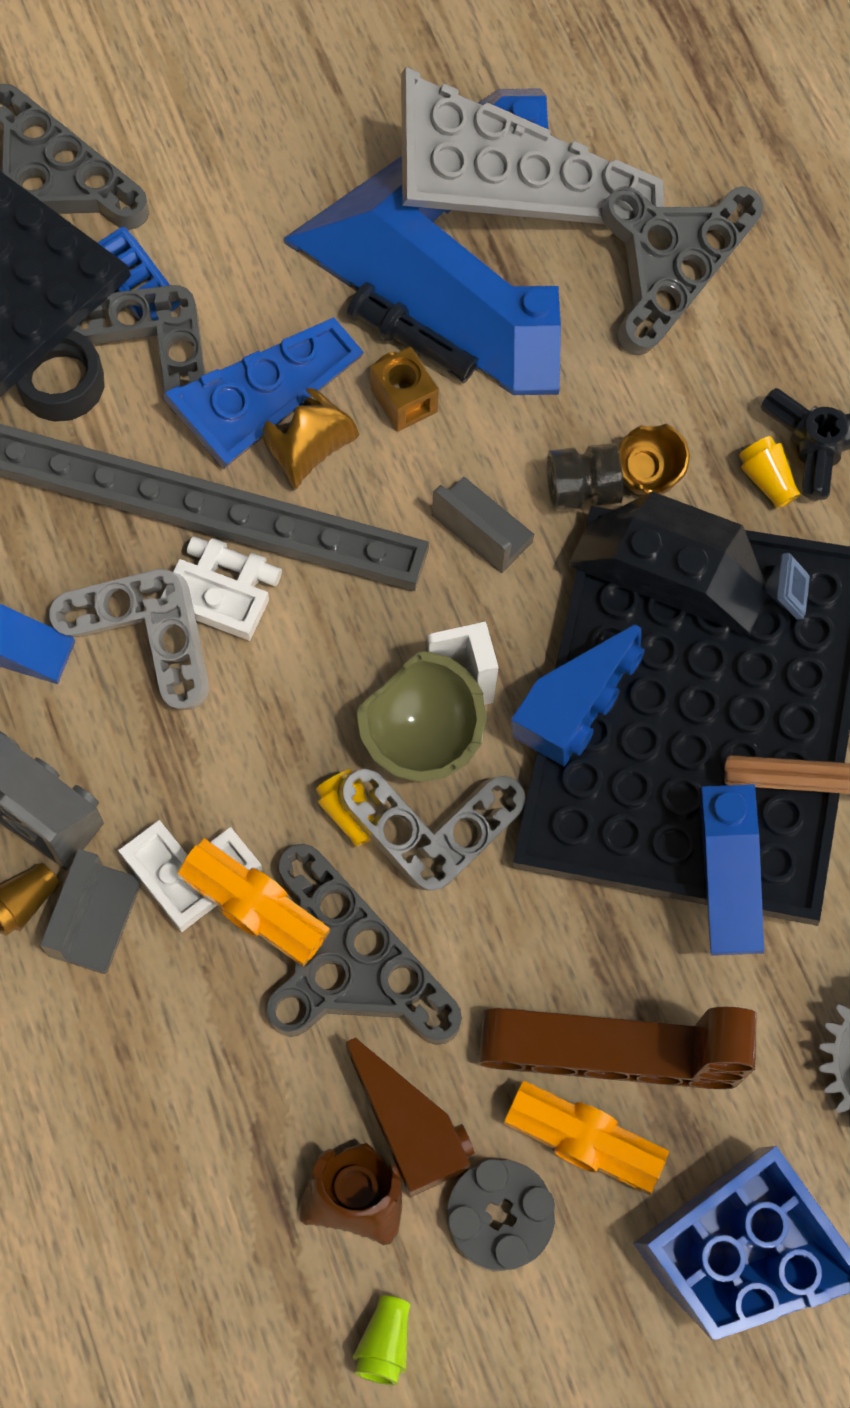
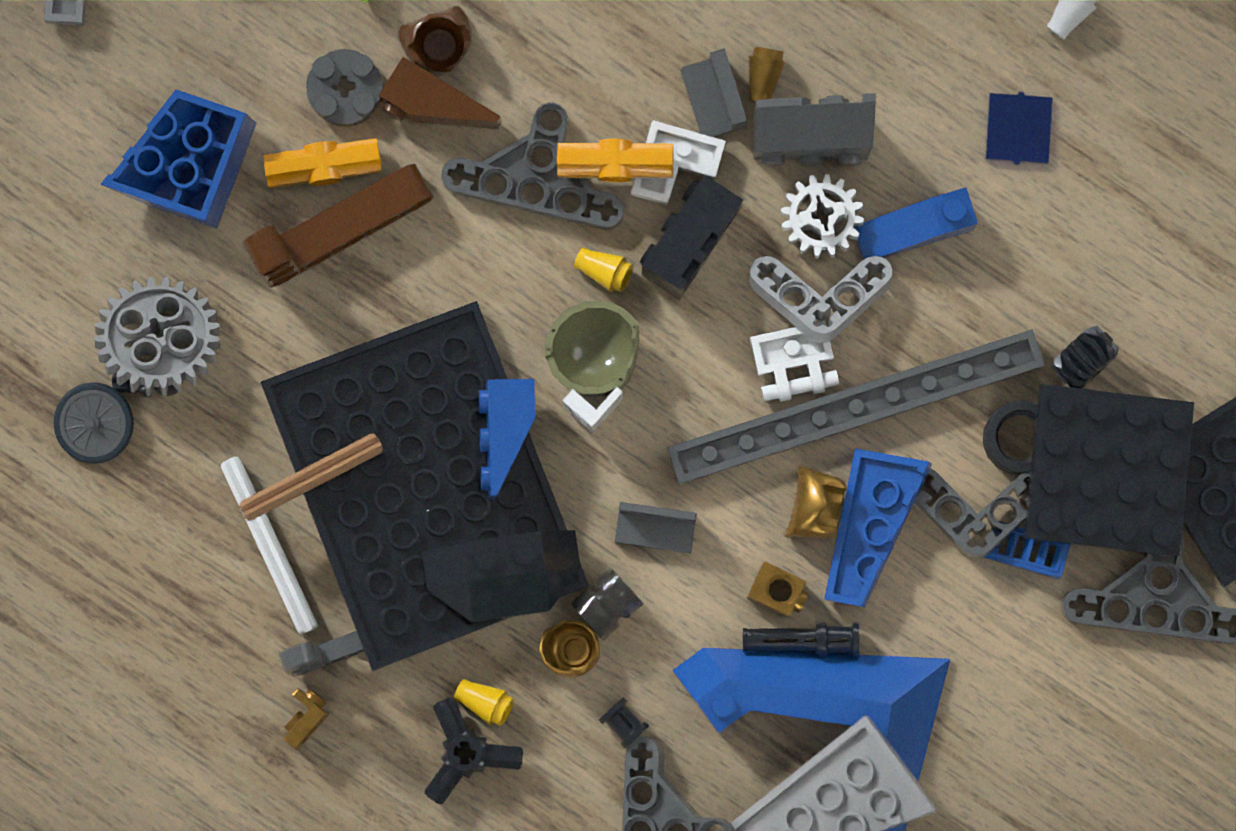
camera: 150 degrees right, 15 degrees up
(61, 693) = (805, 221): none -> white gear
(234, 773) = (690, 236): none -> black wedge
(440, 841) = (532, 283): beam -> none
(629, 356) = (624, 722): none -> black bush
(732, 869) = (333, 374): blue slope -> none
(789, 585) = (413, 597): sand blue slope -> none

